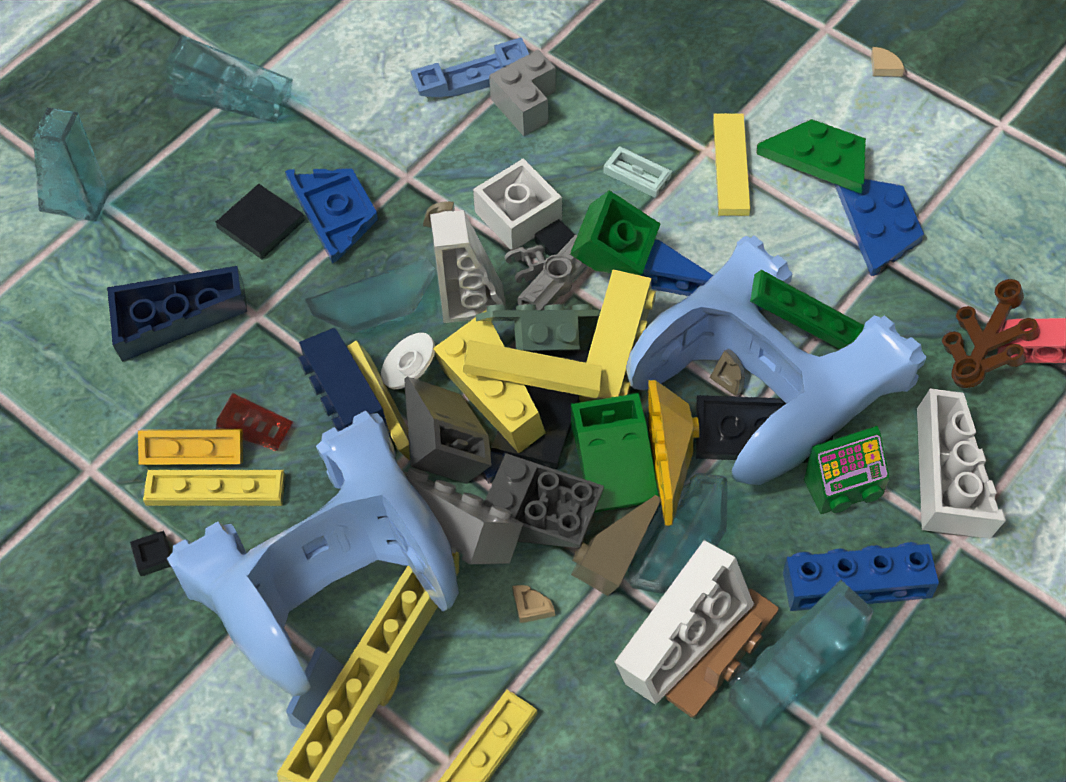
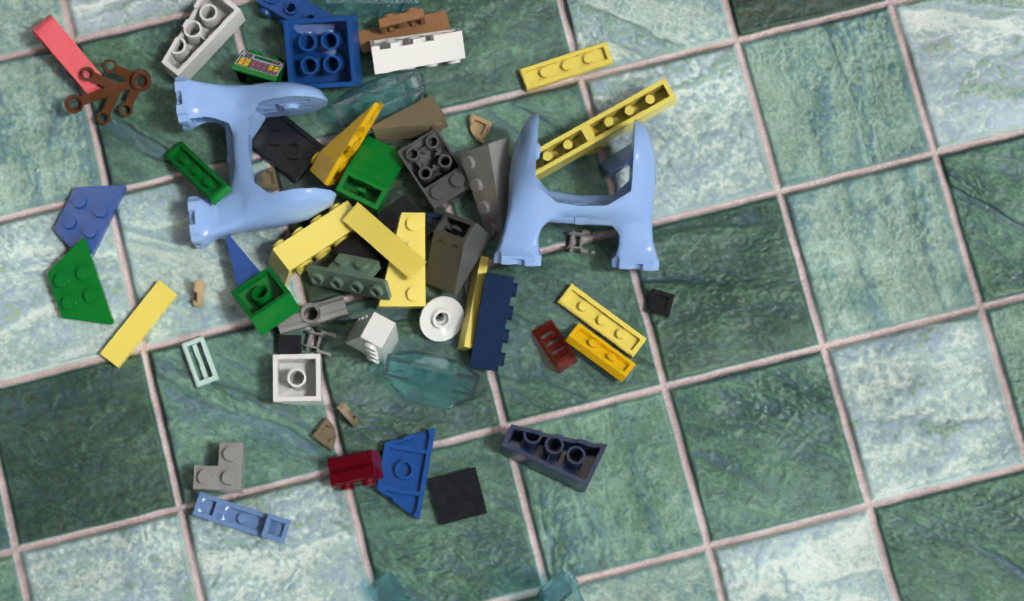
camera: 150 degrees left, 20 degrees up
(387, 167) = (355, 469): none -> dark red brick
(448, 189) = (325, 434): none -> dark tan tile
(697, 225) = (199, 289): none -> tan tile
(789, 532) = (323, 51): none -> blue slope

